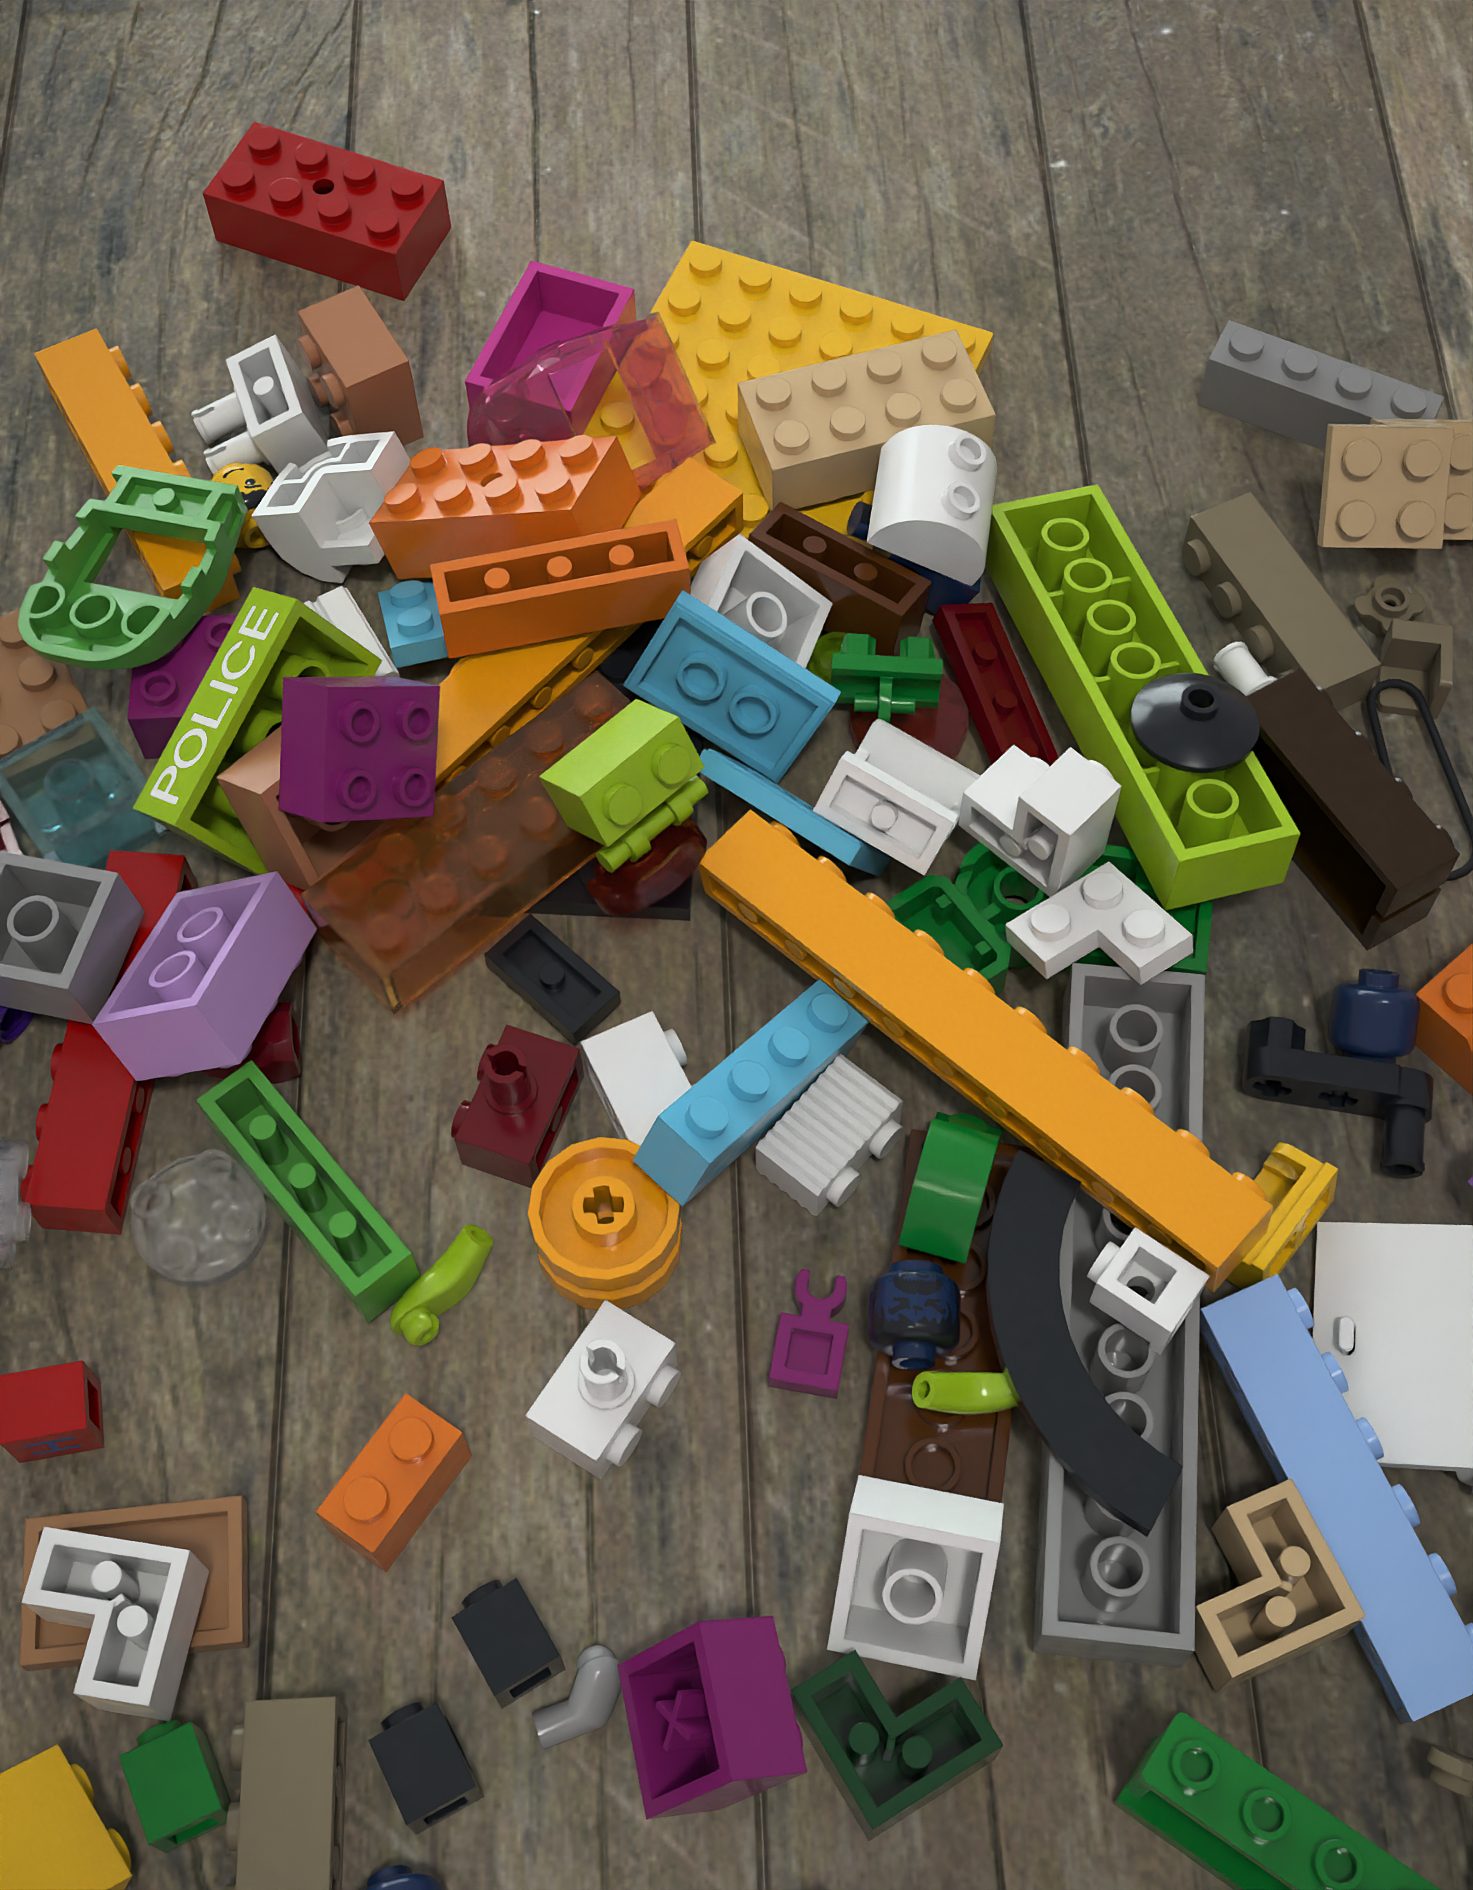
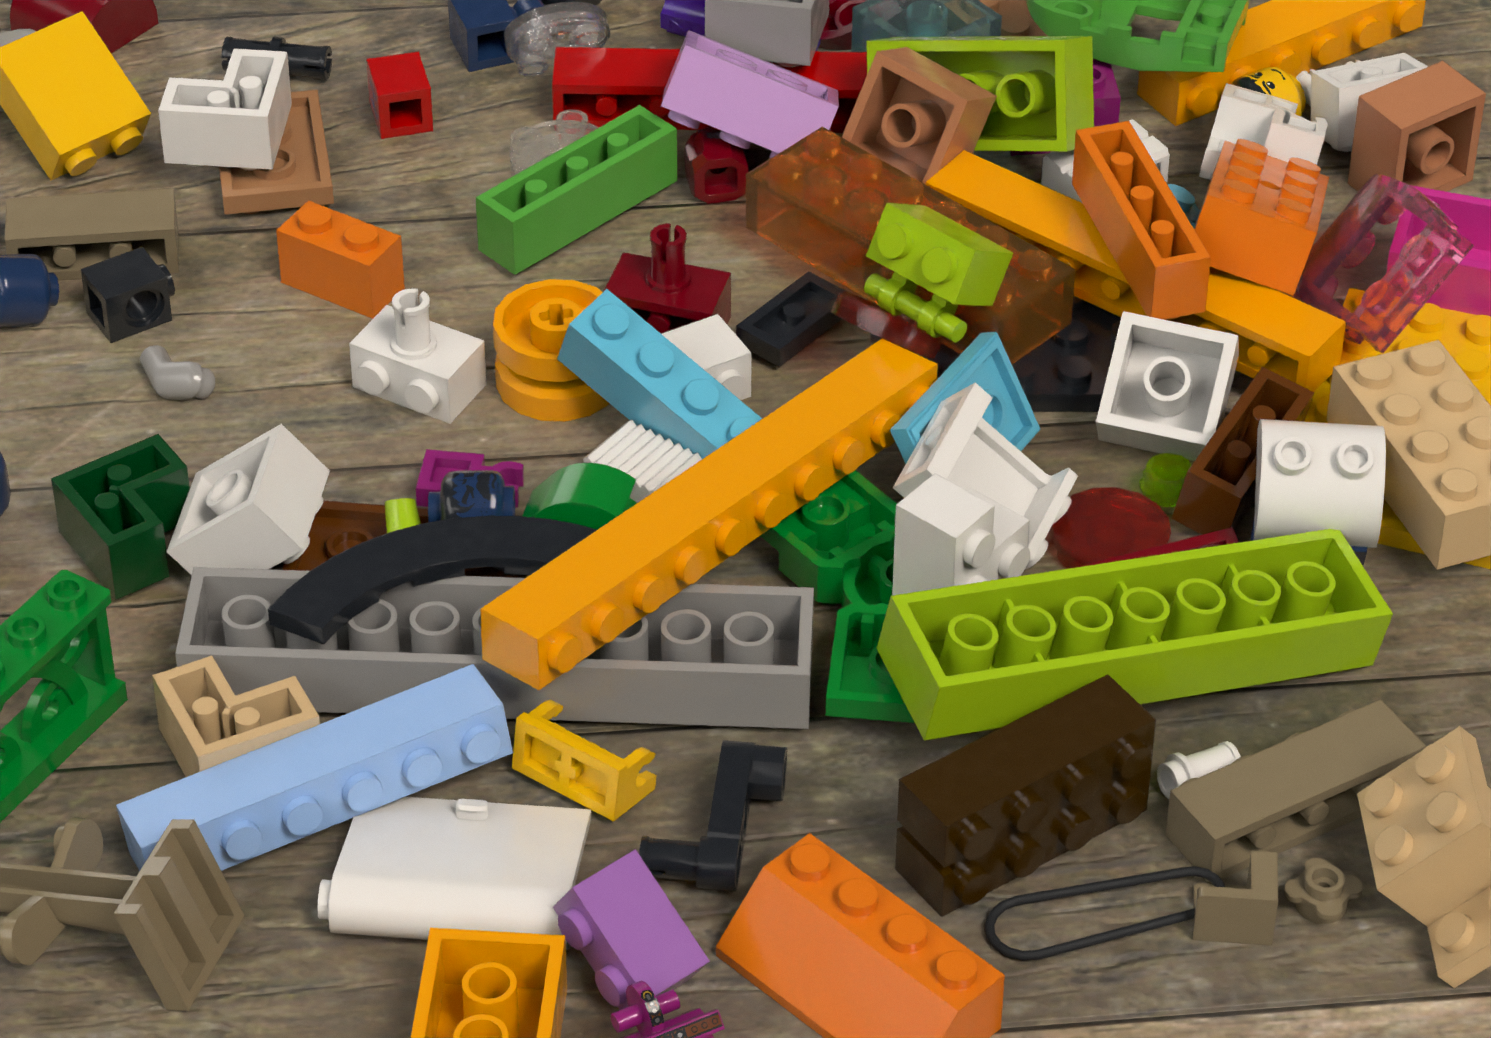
camera: 85 degrees right, 20 degrees down
(175, 1784) = (122, 168): green brick -> none
(358, 748) = (928, 94): magenta brick -> none
(441, 1286) = (497, 272): lime arm -> none
(507, 1640) = (217, 326): black brick -> none
(711, 1716) = (144, 397): magenta brick -> none
(731, 687) = (1082, 365): medium azure tile -> none
(887, 682) = (1135, 485): green hips -> none
(1103, 913) = (849, 605): white plate -> none
(1167, 1277) = (460, 595): white brick -> none
(1194, 722) = (1067, 631): black dish -> none
(1374, 1017) = (789, 816): dark blue head -> none

